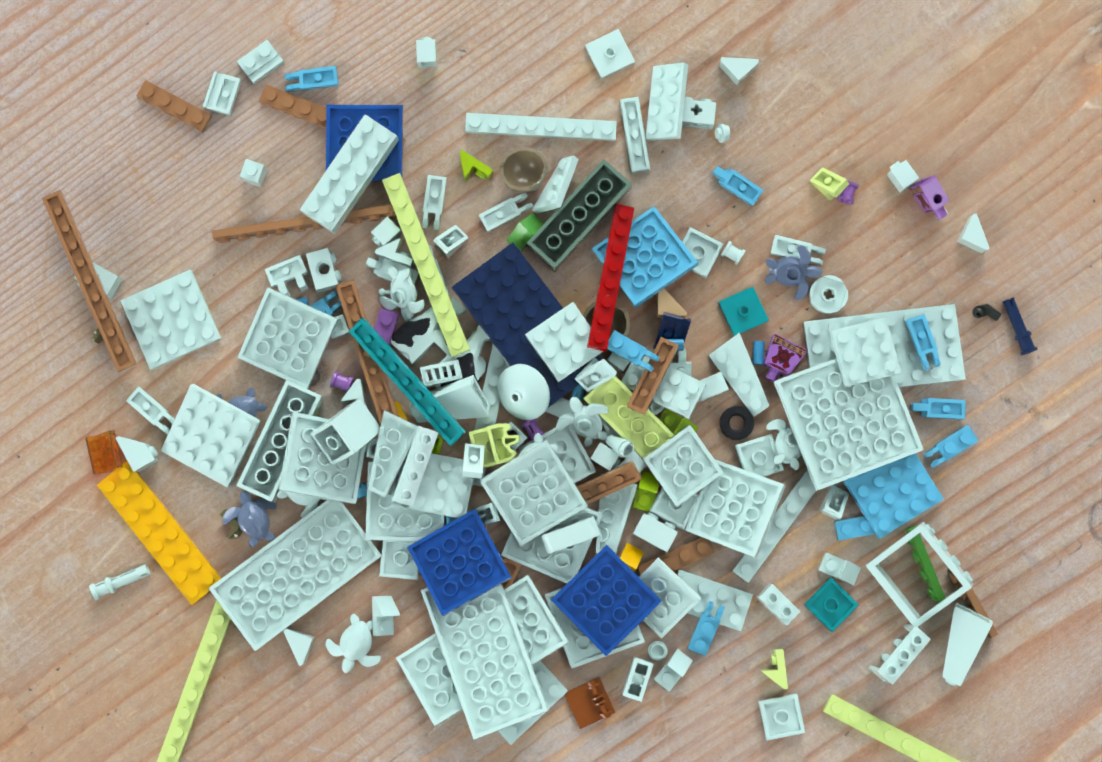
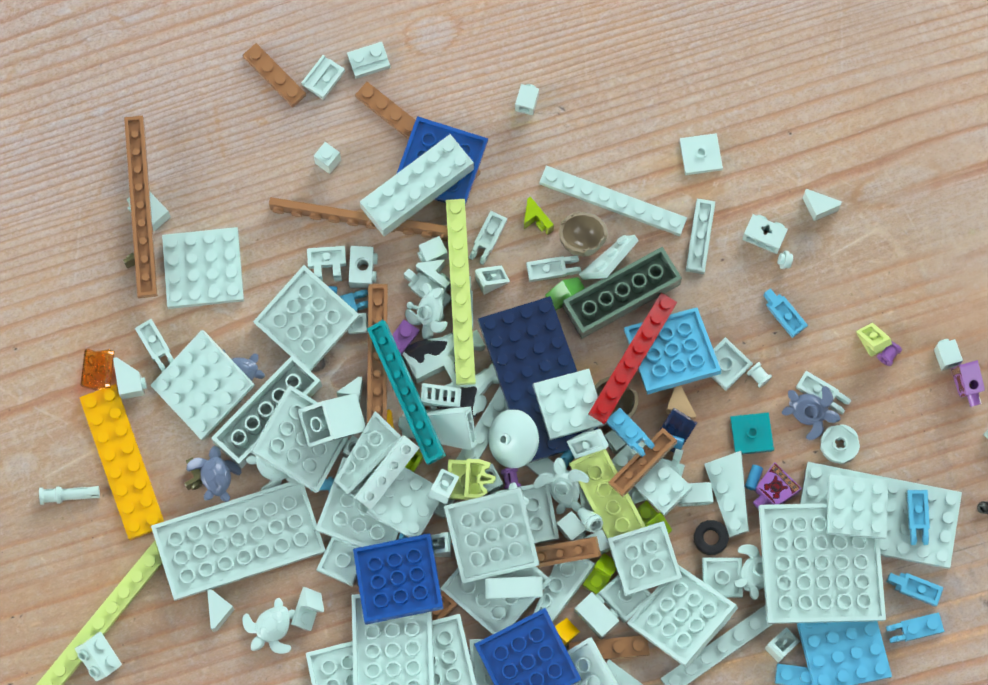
camera: 20 degrees right, 10 degrees down
(202, 727) = (98, 656): none -> light aqua bracket
(313, 79) = (412, 90): medium azure hinge -> none
(341, 381) = (343, 375): medium lavender bush -> none
(666, 102) = (740, 214): light aqua plate -> none

